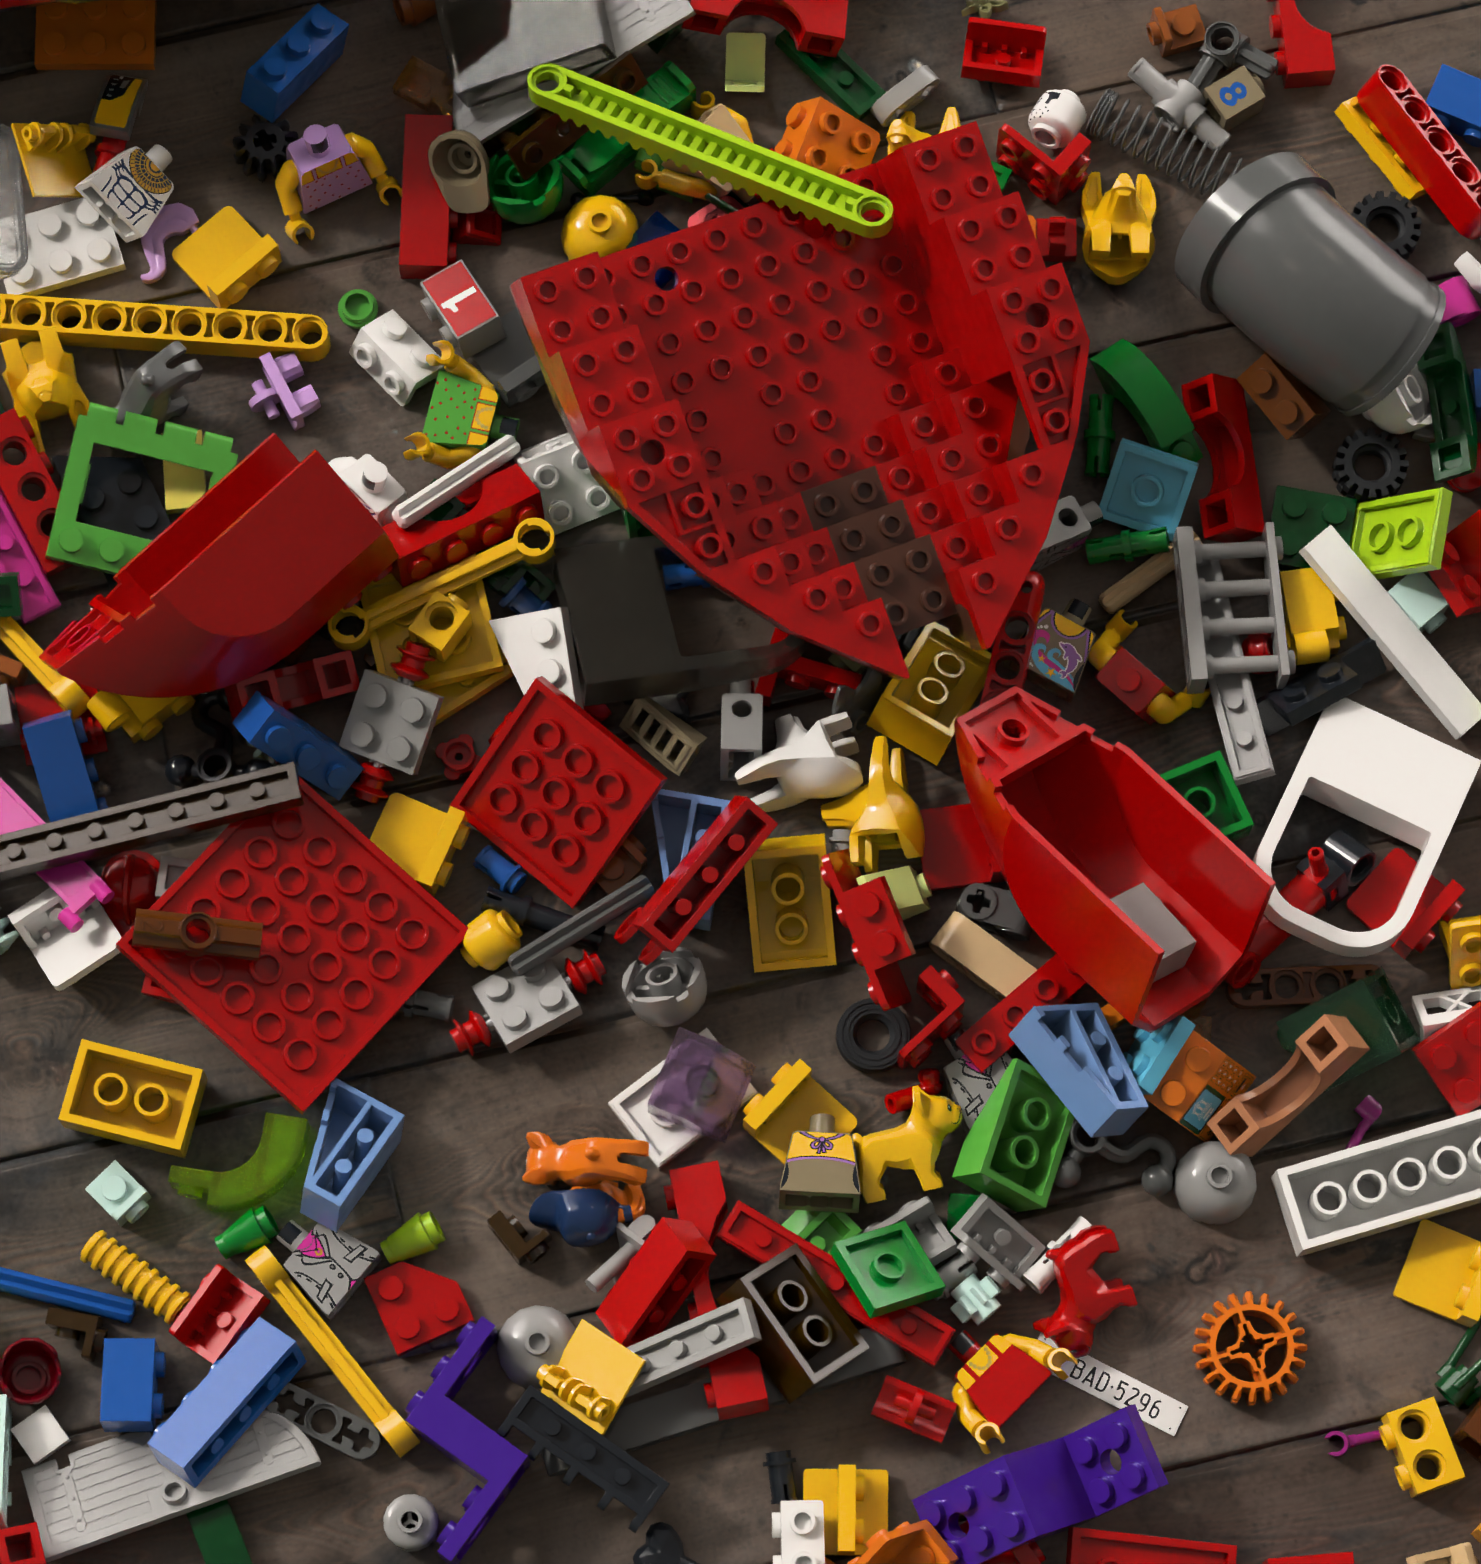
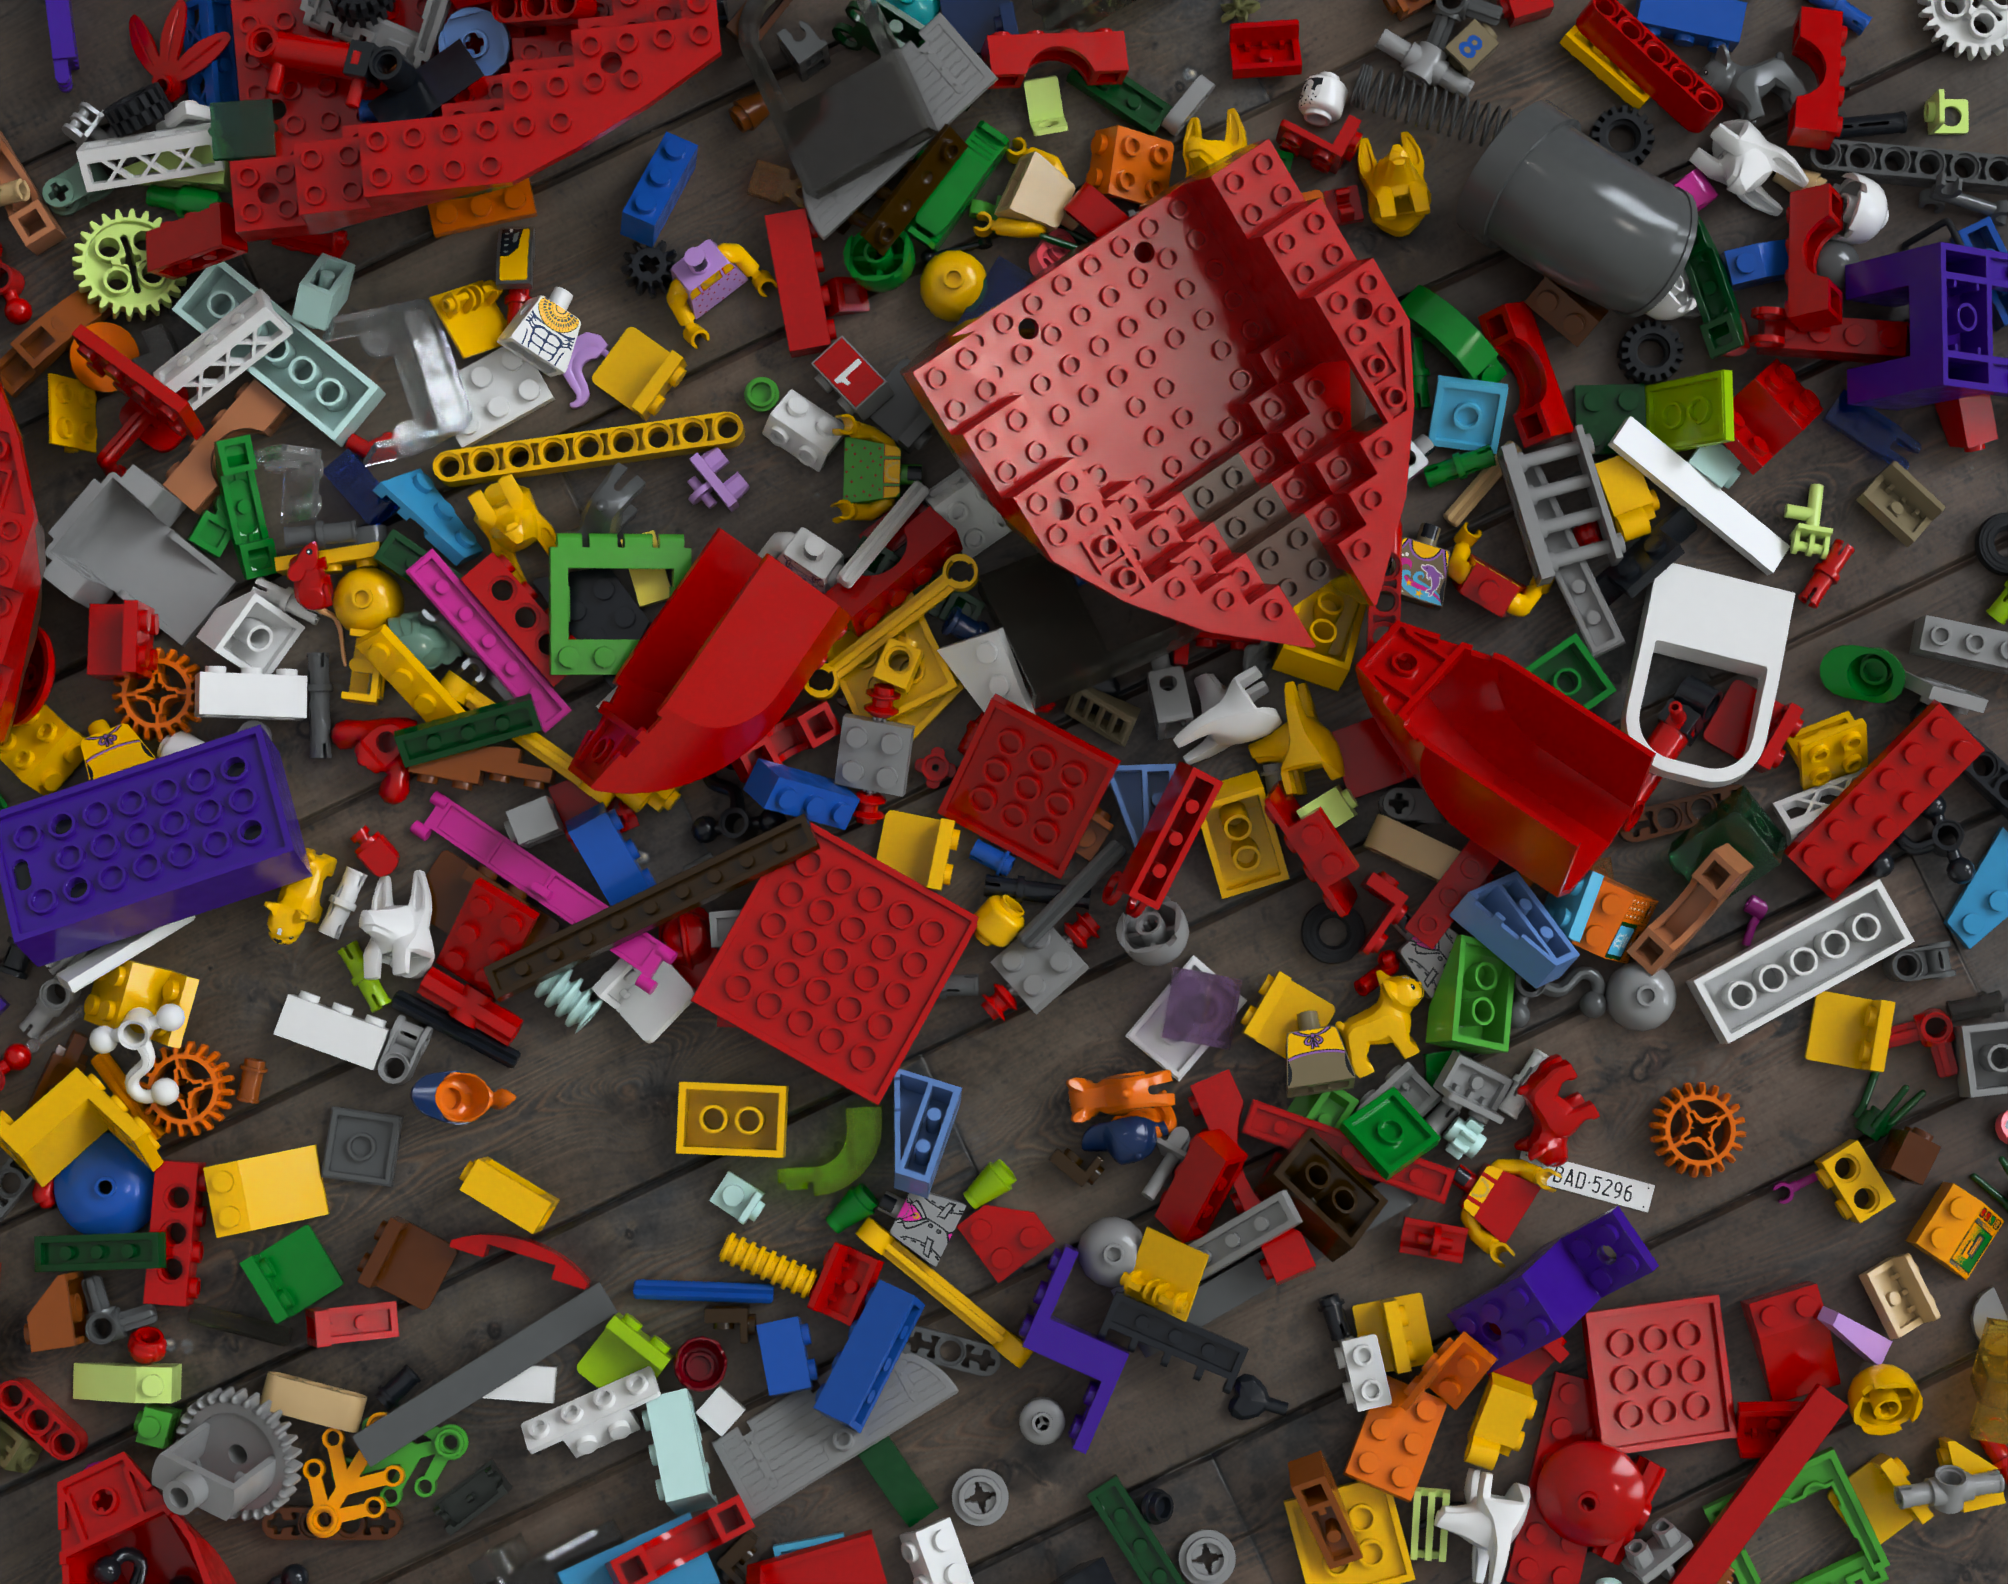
camera: 10 degrees left, 10 degrees up
(168, 932) = (734, 983): reddish brown piece -> none
(461, 176) = (825, 261): dark tan cap -> none
(710, 151) = (1041, 206): lime gear -> none
(1160, 925) = (1552, 800): light grey brick -> none

